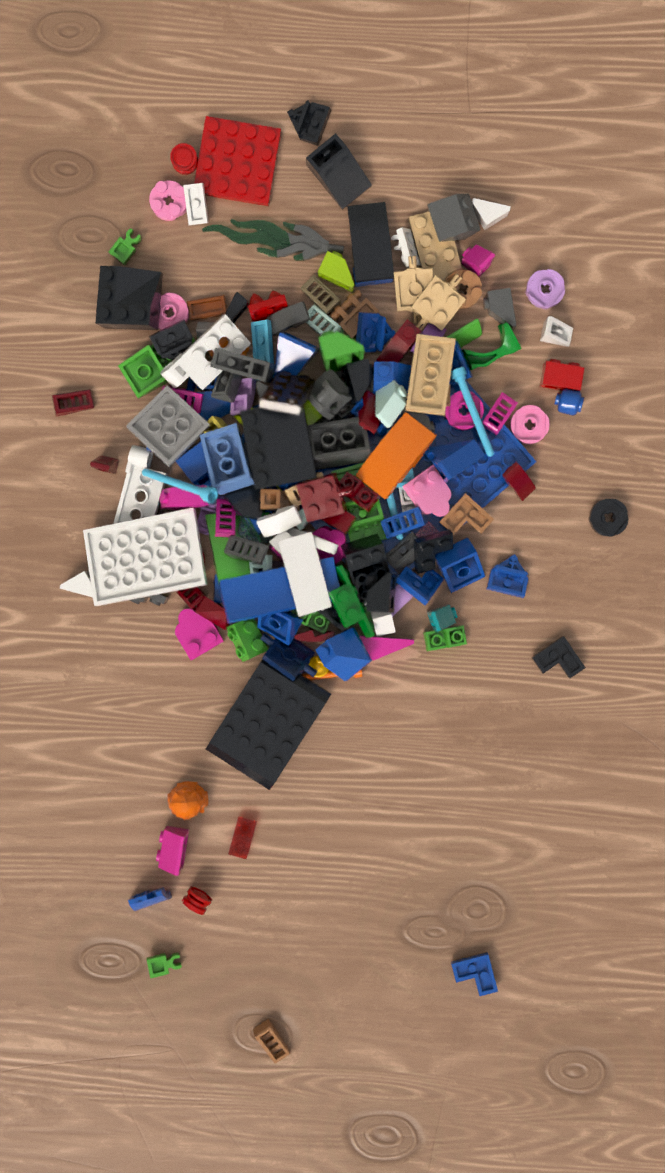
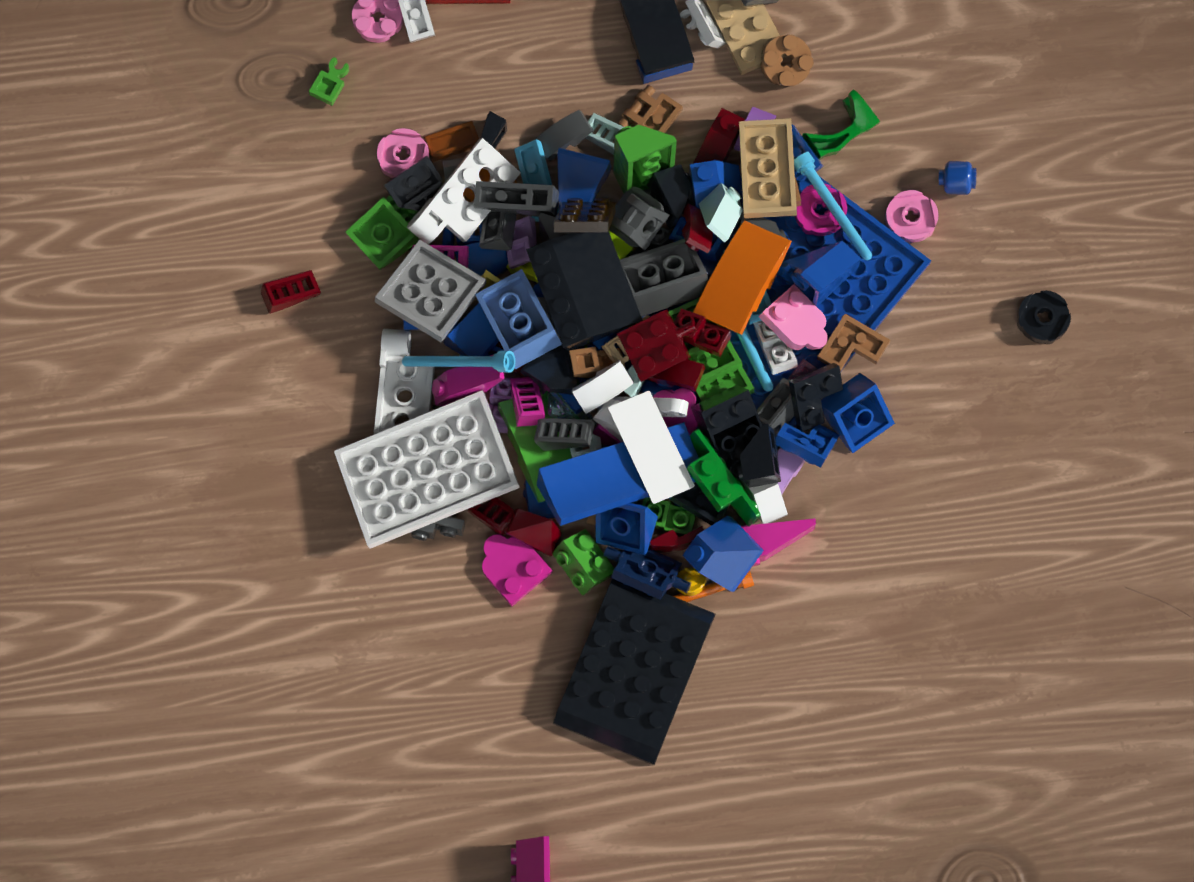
camera: 10 degrees left, 15 degrees down
(79, 584) = (340, 528): white slope -> none
(105, 464) = (349, 363): dark red slope -> none
(128, 298) = (346, 144): black slope -> none
(187, 800) = (540, 797): orange helmet -> none
(242, 838) = (628, 840): clear red slope -> none
(261, 309) = (526, 129): red tile -> none
(284, 243) = (540, 45): piece -> none
(326, 309) = (620, 101): dark tan slope -> none
(335, 270) = (616, 67): lime slope -> none
(373, 331) = (684, 128): blue slope -> none
(386, 525) = (774, 371): blue slope -> none
(410, 285) = (724, 70): tan plate -> none
(438, 302) = (759, 80): tan plate -> none
(442, 617) = (845, 482): teal slope -> none
(445, 638) = (857, 514): bright green slope -> none
(467, 333) = (806, 113): bright green slope -> none
(477, 259) = (799, 20): dark pink slope -> none
(490, 426) = (861, 224): dark pink slope -> none
(500, 306) = (840, 73): dark grey slope -> none
(508, 578) = (927, 419): blue slope -> none
(519, 481) = (913, 286): dark red slope -> none
(544, 278) = (899, 57): lavender plate -> none
(556, 332) = (921, 94): white slope -> none
(559, 653) = (1021, 506): black plate -> none
(561, 376) = (937, 147): red brick -> none

